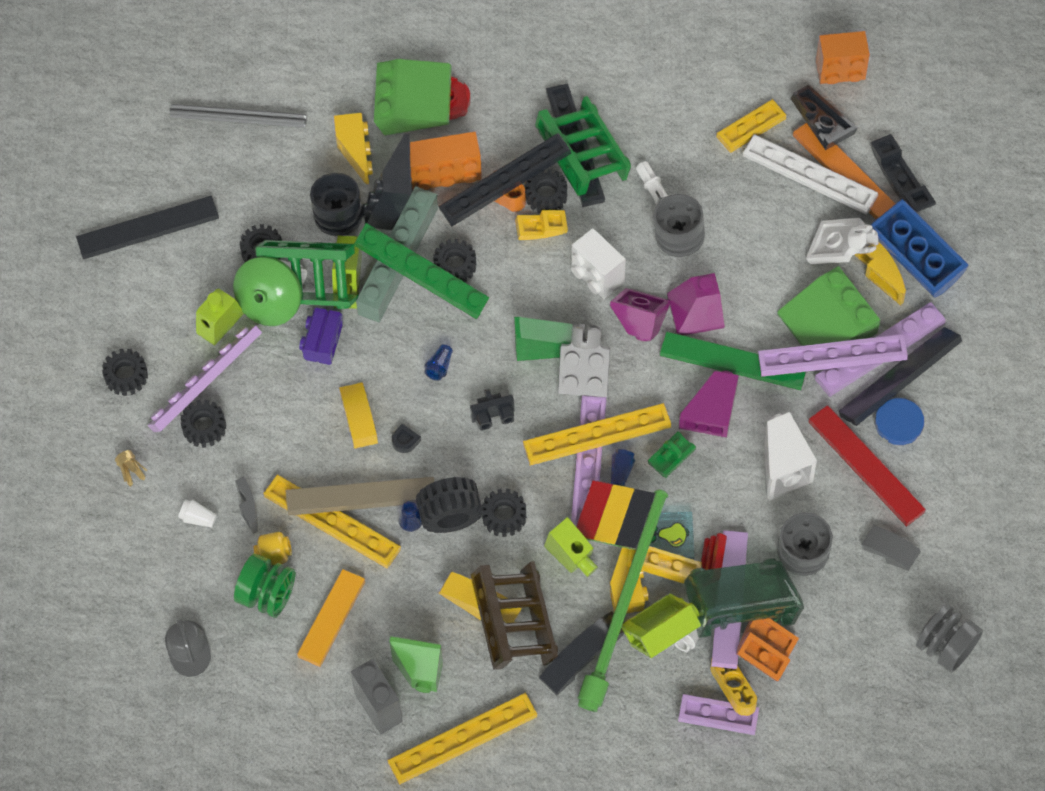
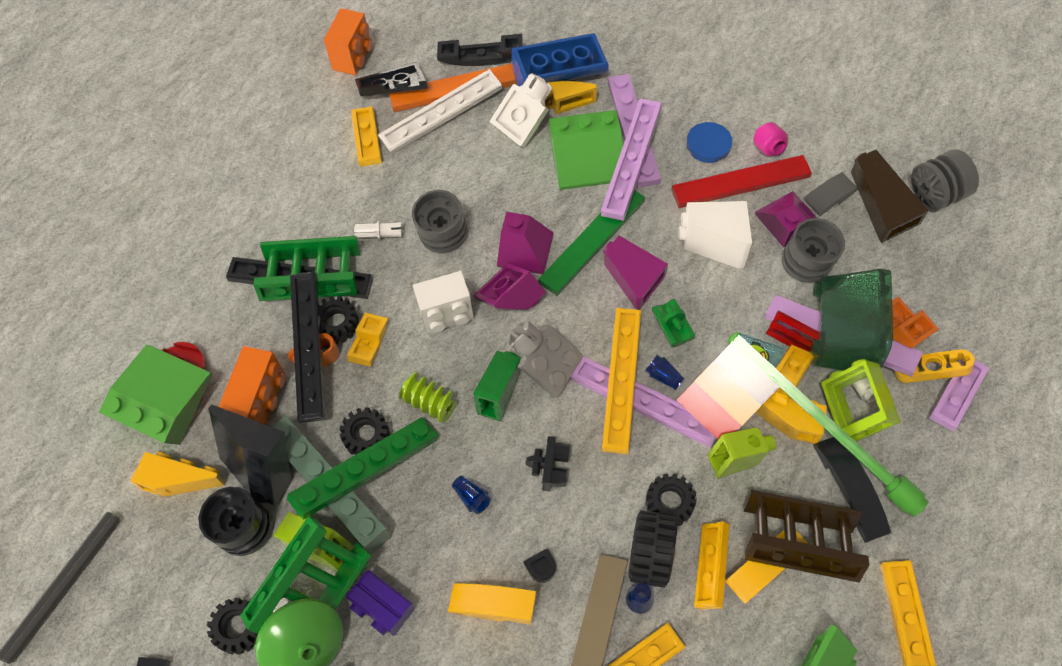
camera: 65 degrees left, 0 degrees up
(461, 561) = (712, 566): none -> yellow tile
(507, 293) = (427, 398): none -> lime piece
(847, 519) = (783, 216): none -> magenta slope
(900, 376) = (670, 127): black tile -> none
(907, 598) = (886, 196): none -> dark brown slope
(927, 472) = (770, 139): none -> dark pink head

